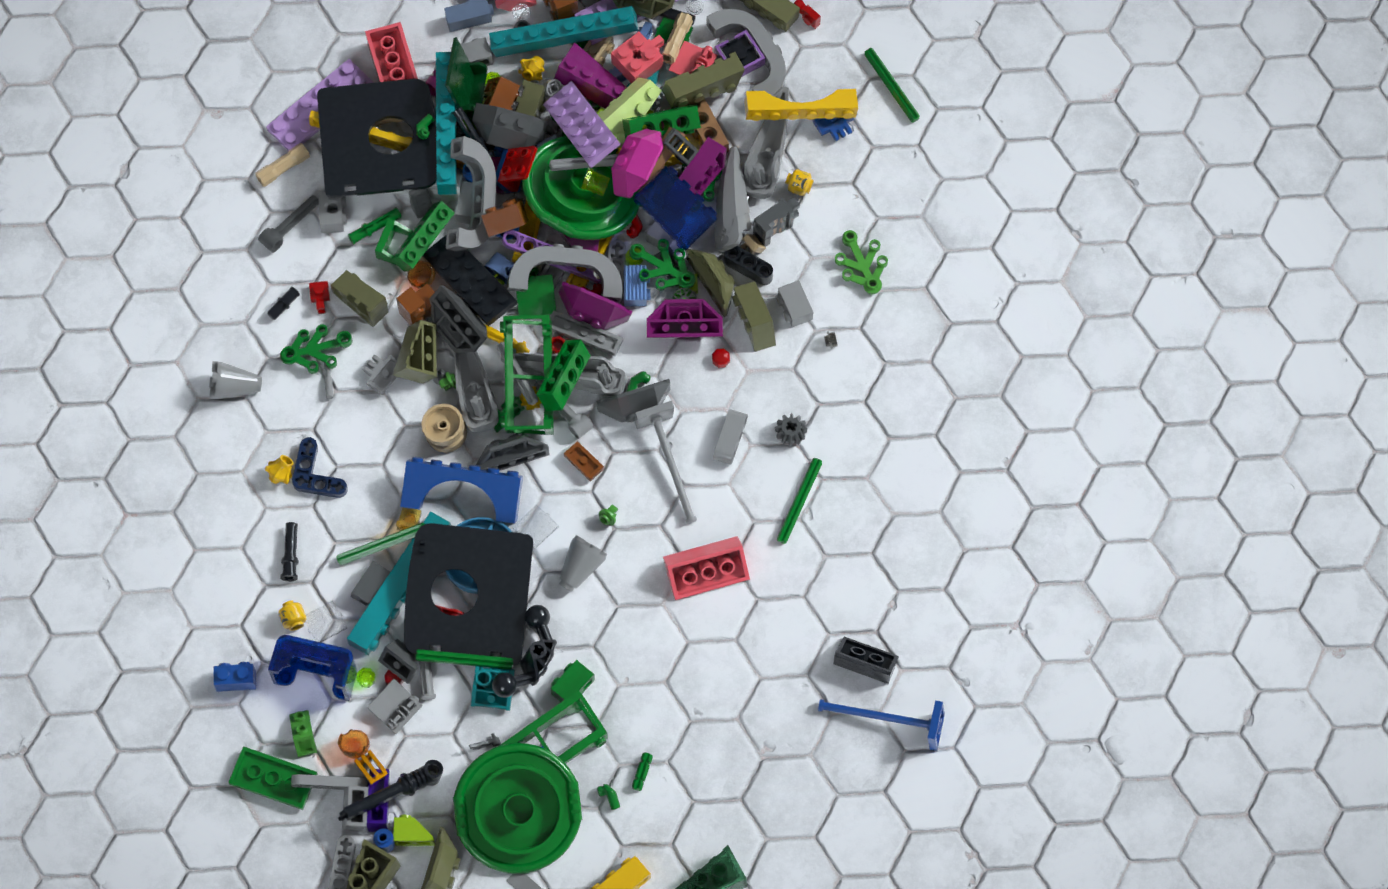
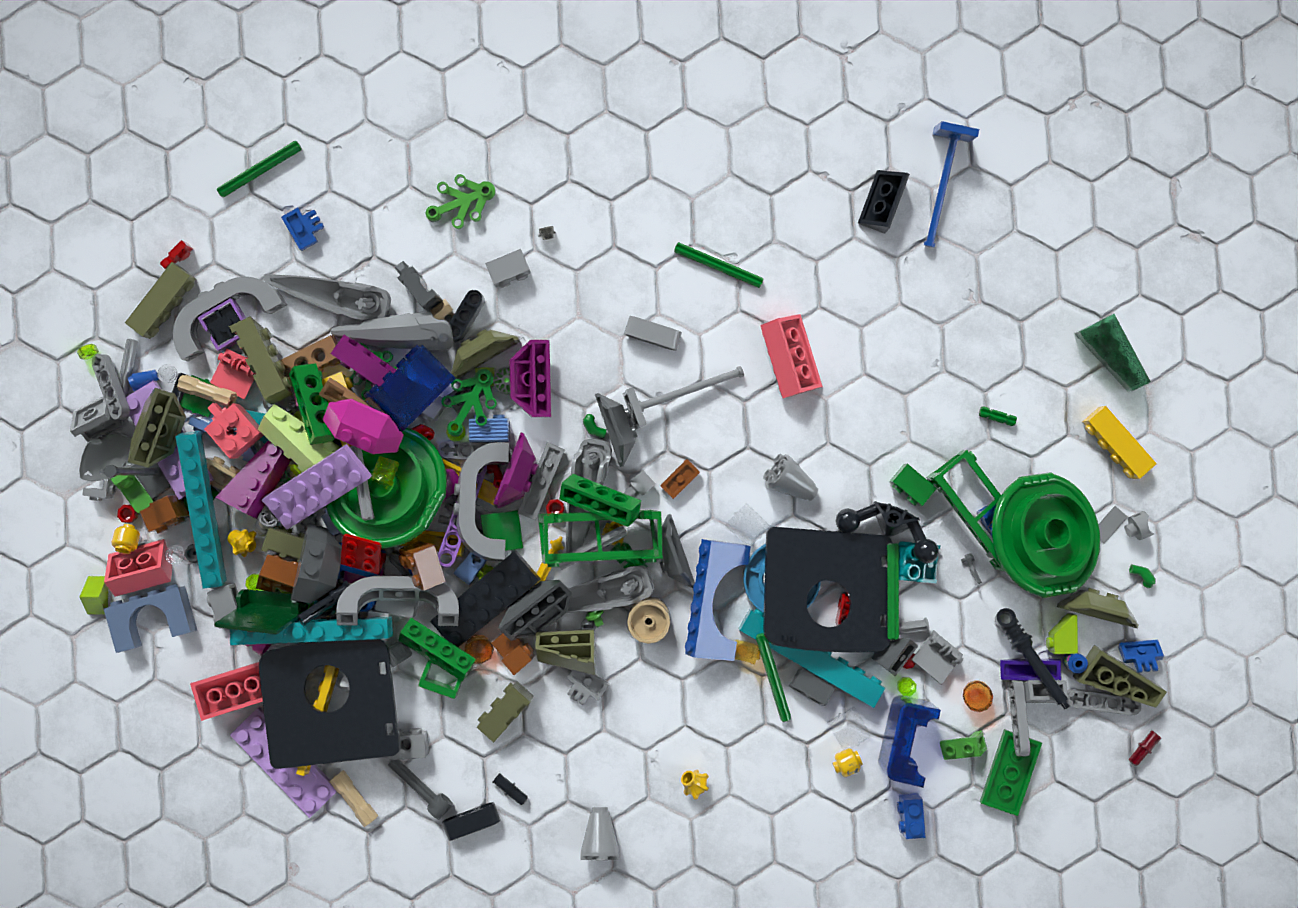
camera: 90 degrees left, 20 degrees up
(254, 268) = (471, 821): none -> black beam
(290, 560) = (789, 768): black pin -> none
(307, 473) = (695, 755): dark blue beam -> none
(313, 348) = (560, 756): green plant -> none
(319, 294) = (498, 752): red plate -> none
(328, 383) = (593, 738): light grey piece -> none
(365, 760) = (985, 678): light orange tile -> none
(367, 230) = (410, 680): green pin -> none
(422, 127) = (318, 655): green arm -> none
(607, 516) = (739, 454): bright green plate -> none
(611, 795) = (1016, 451): green arm -> none
(689, 154) = (350, 375): dark grey slope -> none
(720, 358) = (566, 343): red tile -> none
(755, 316) = (521, 309): olive wedge -> none
(764, 106) = (289, 297): yellow arch -> none
(789, 435) = (648, 266): dark grey gear -> none
(799, 182) = (373, 263): yellow head -> none

